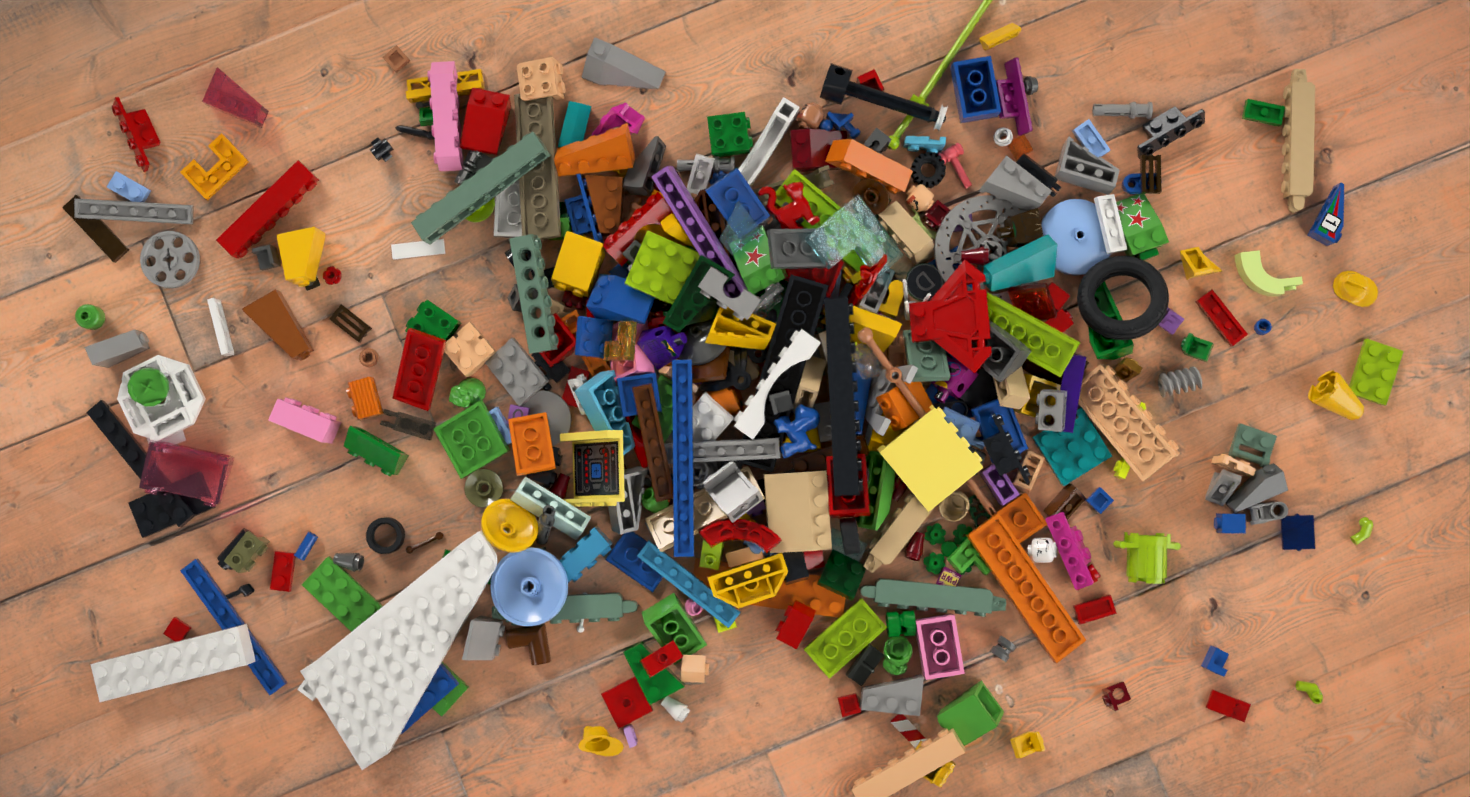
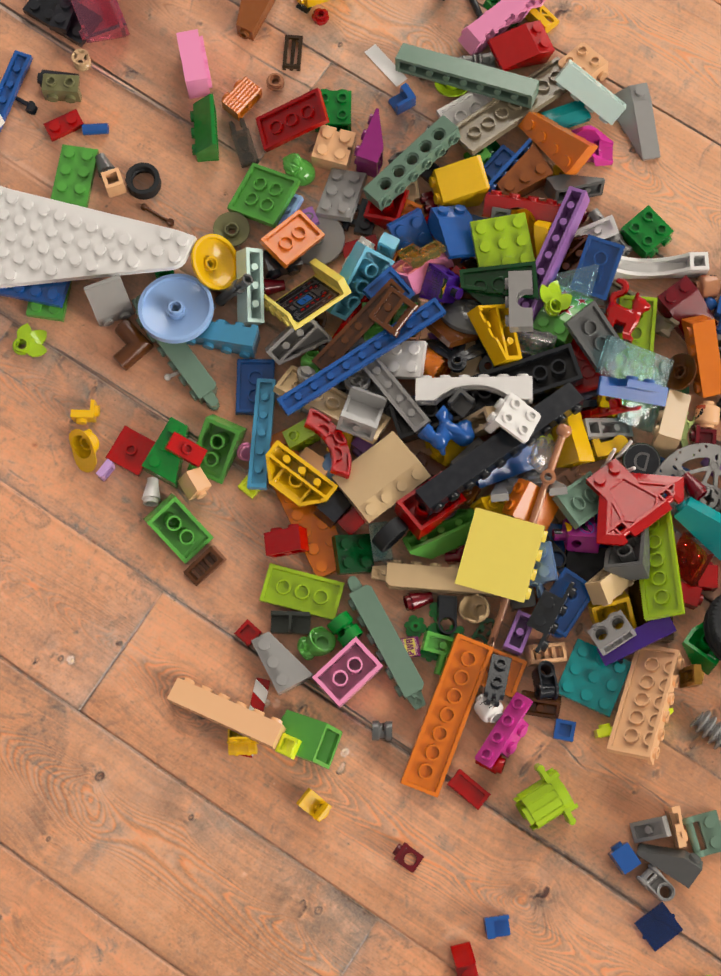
camera: 50 degrees right, 10 degrees down
(225, 516) = (81, 55): none -> tan wheel
(371, 563) = (113, 182): none -> light nougat brick
(462, 258) = (404, 100): none -> blue panel
(469, 725) = (32, 340): none -> lime plate
(497, 321) = (370, 152): none -> magenta slope
(570, 725) = (83, 416): none -> yellow bracket
(571, 93) = (590, 92): none -> light aqua brick
(593, 364) = (388, 245): none -> medium azure slope
(658, 408) = (389, 307): none -> reddish brown plate
(663, 513) = (304, 373): none -> light grey plate
(721, 706) = (178, 528): none -> bright green slope
(741, 259) = (554, 298): none -> lime plate
(771, 688) = (200, 560): none -> reddish brown slope
(827, 370) = (513, 417): none -> white bracket
(864, 250) = (633, 390): none -> bracket
(939, 528) = (446, 609): none -> black piece
(970, 736) = (288, 746): none -> neon yellow tile
(1026, 528) = (497, 679): none -> black hinge
(1053, 491) = (545, 685): none -> black piece

